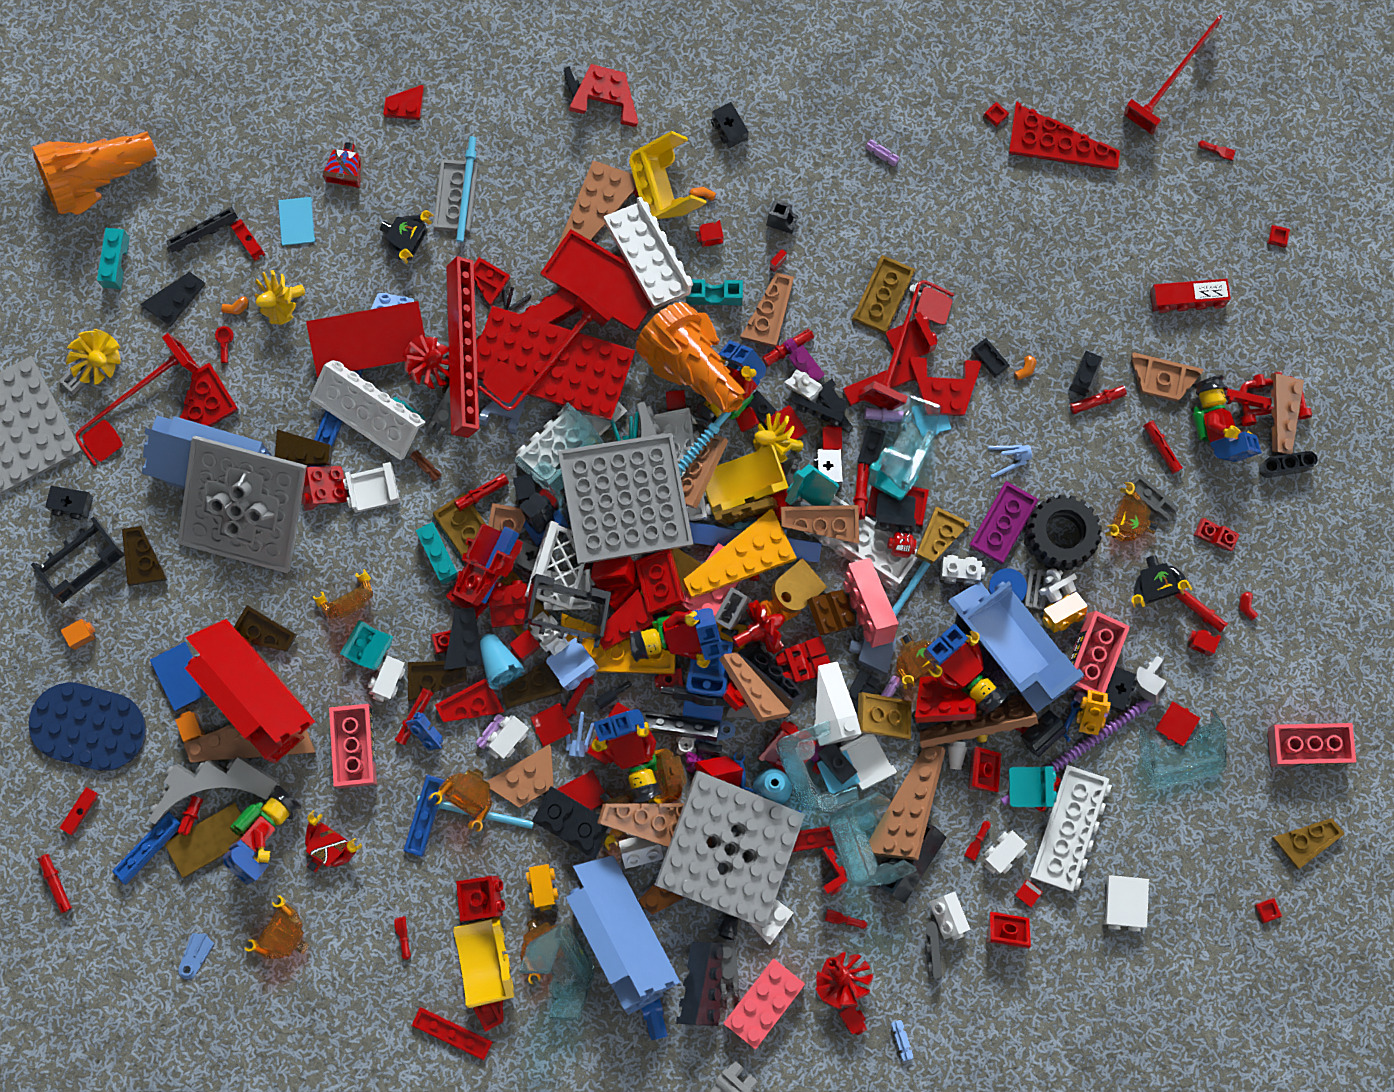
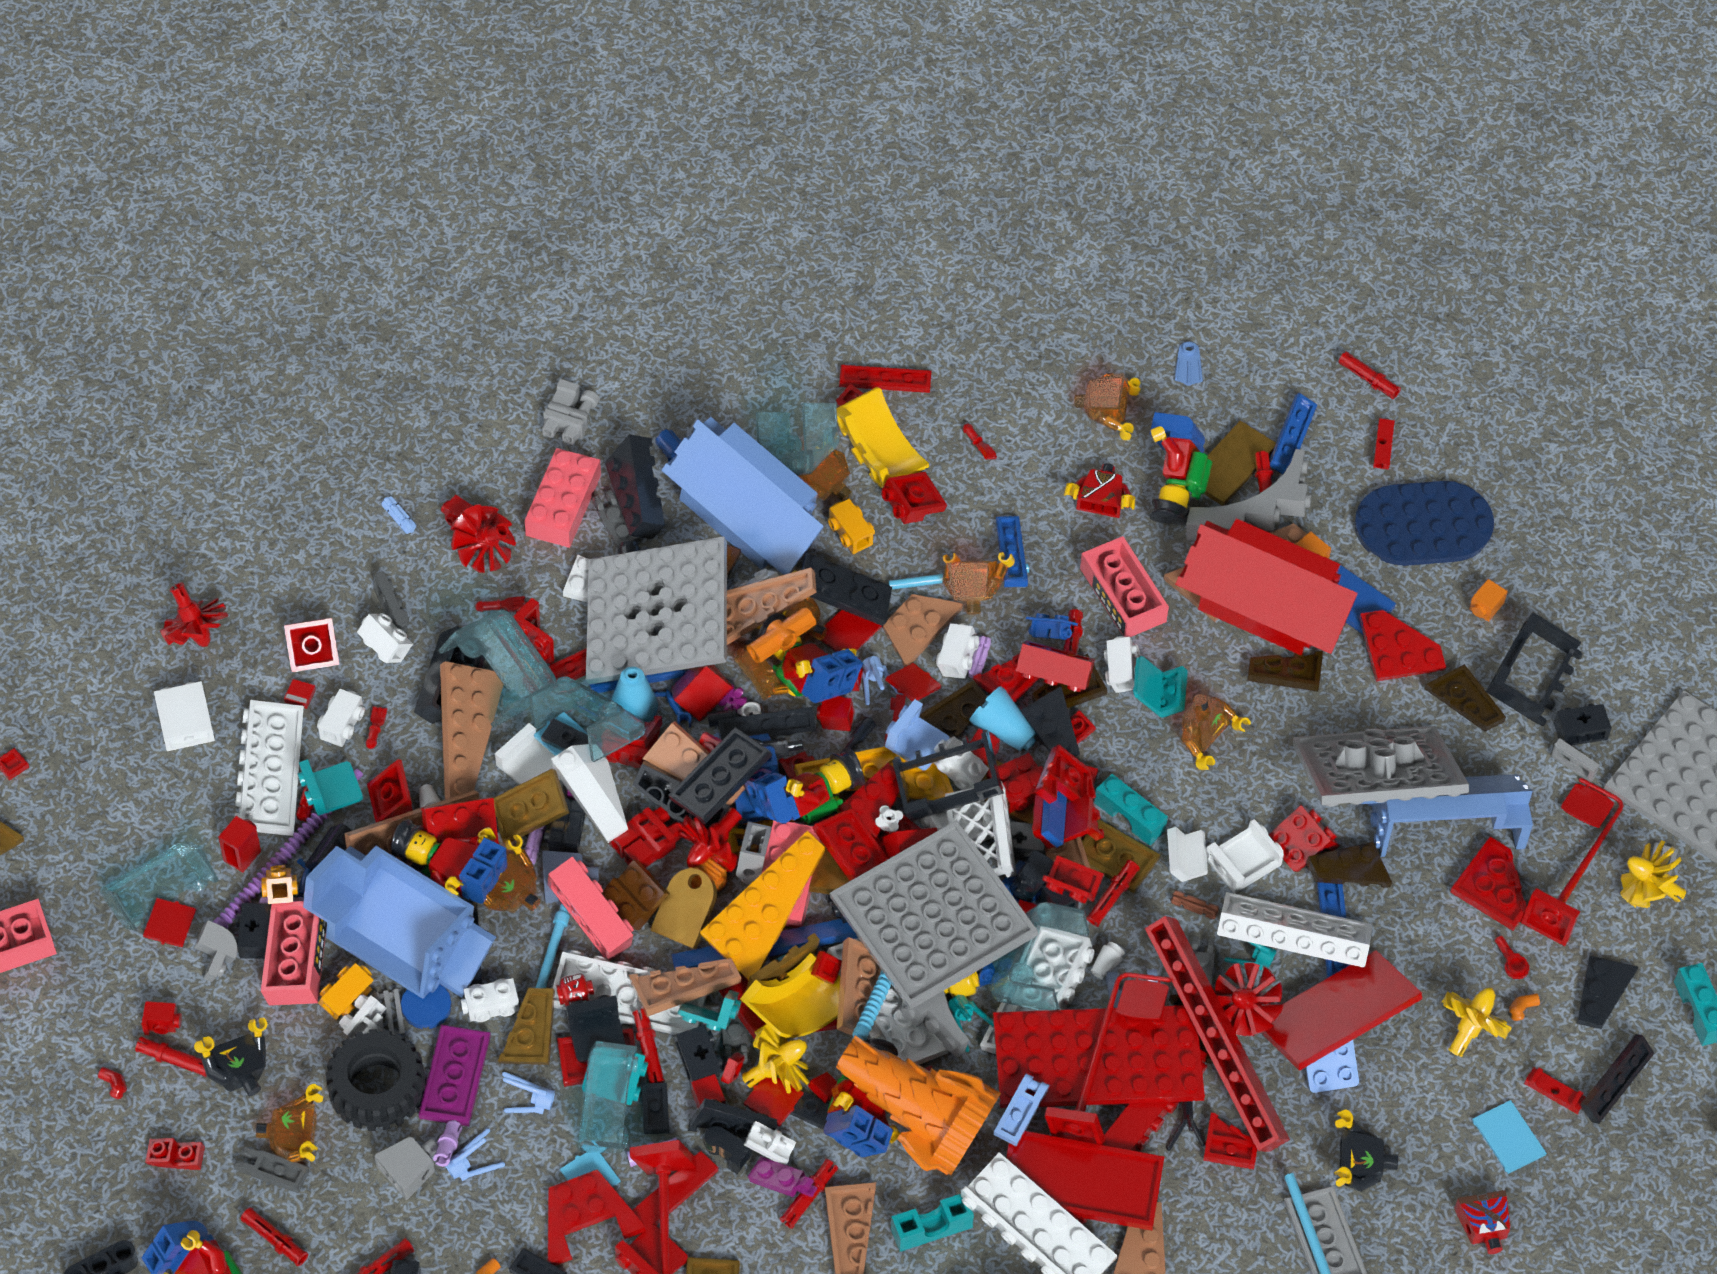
camera: 160 degrees right, 20 degrees down
(91, 475) = (1575, 760): none -> light grey tile
(169, 618) = (1397, 648): none -> red plate
(412, 503) = (1187, 854): none -> white panel
(440, 687) = (1055, 666): none -> brick
(508, 443) = (1107, 960): none -> white cone
(516, 479) = (1073, 878): none -> red bracket
(623, 334) = (1020, 1110): none -> light blue plate
(623, 602) = (888, 825): none -> white plate
(646, 773) = (781, 635): none -> orange piece
(715, 496) = (826, 967): none -> red tile
(741, 659) = (720, 775): none -> black piece
(807, 453) = (733, 1068): none -> red tile
(948, 482) = (541, 1096): none -> light blue plant
(1025, 468) = (447, 1143): none -> lavender pin
(1057, 465) = (407, 1164): none -> light grey torso
(1105, 982) = (191, 619): none -> red piece
(1112, 762) = (239, 843): none -> red brick

